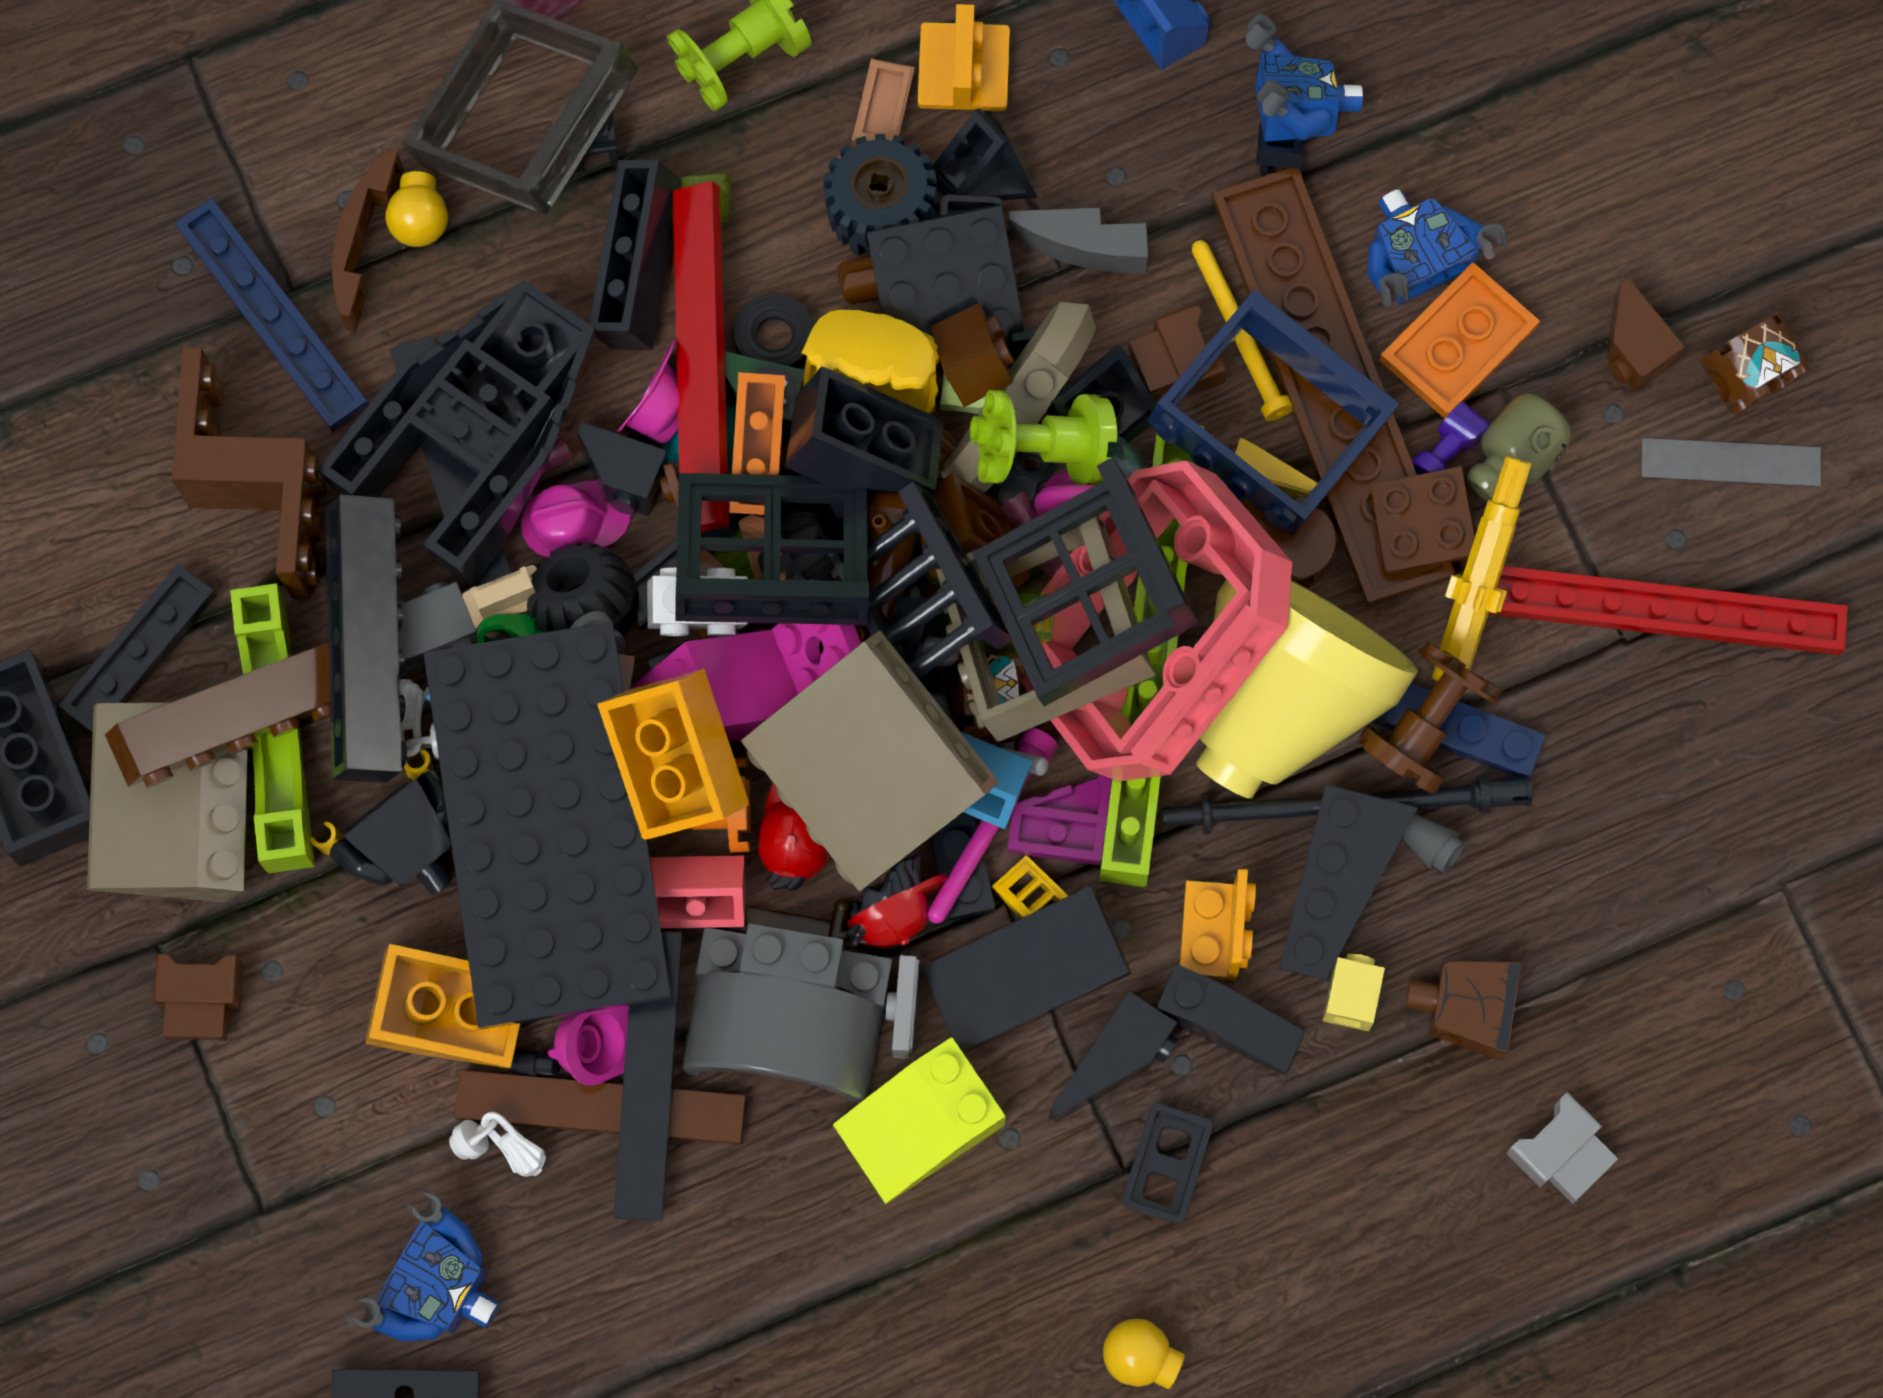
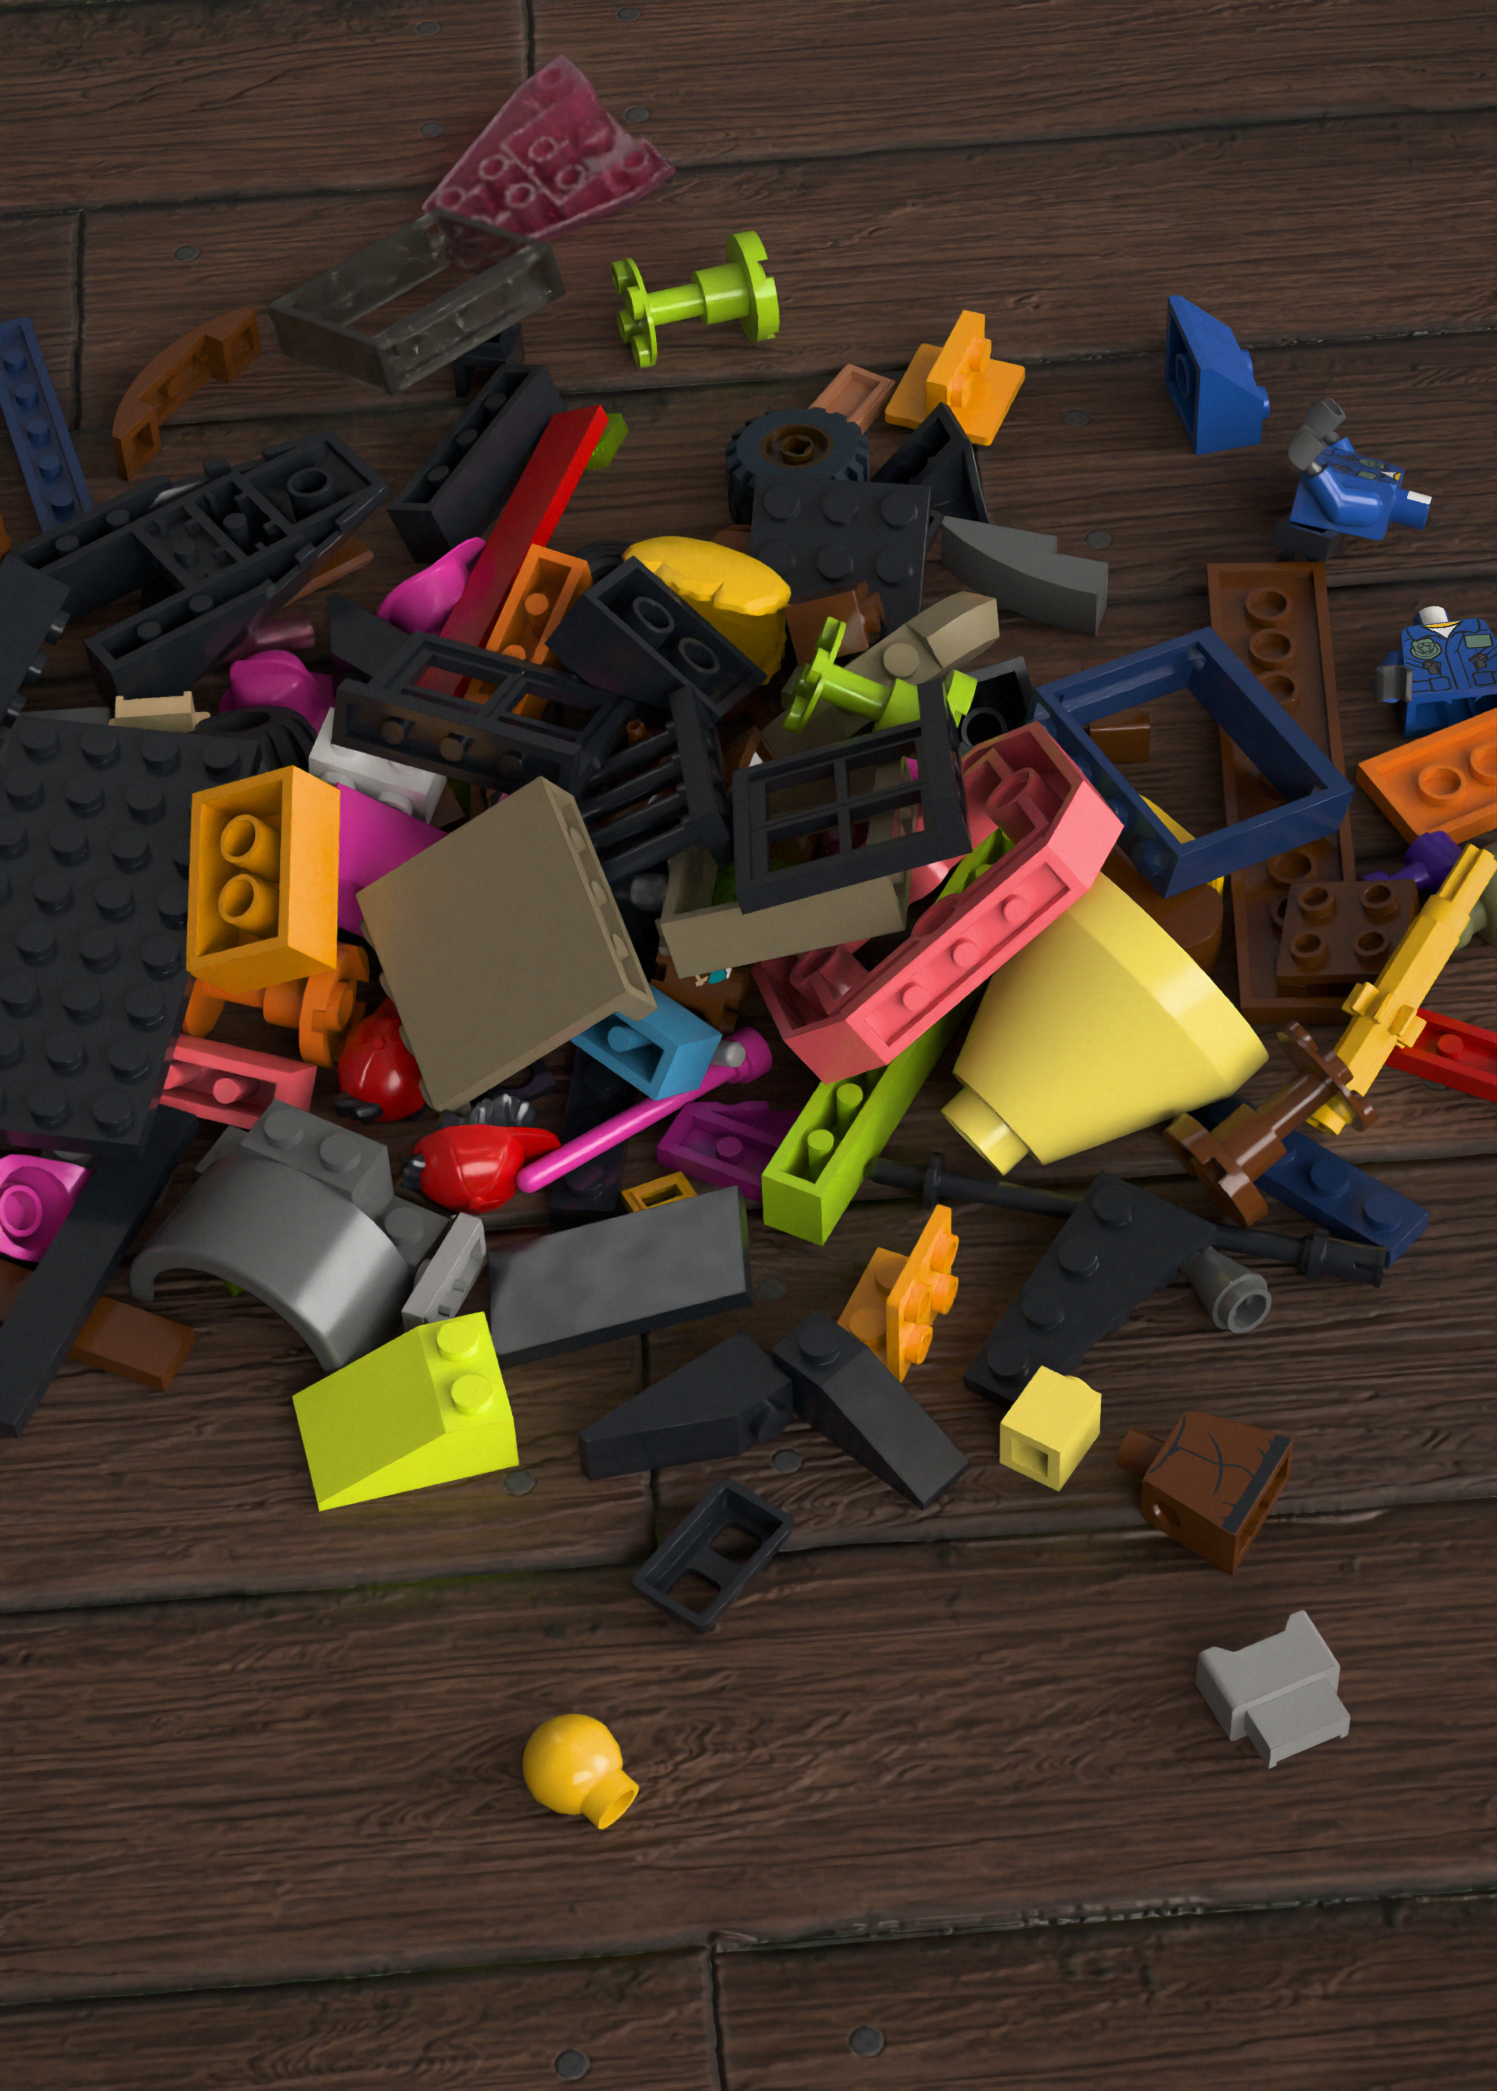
camera: 20 degrees right, 25 degrees down
(416, 211) = (252, 379): yellow piece -> none
(1275, 404) = (1203, 789): yellow bar -> none

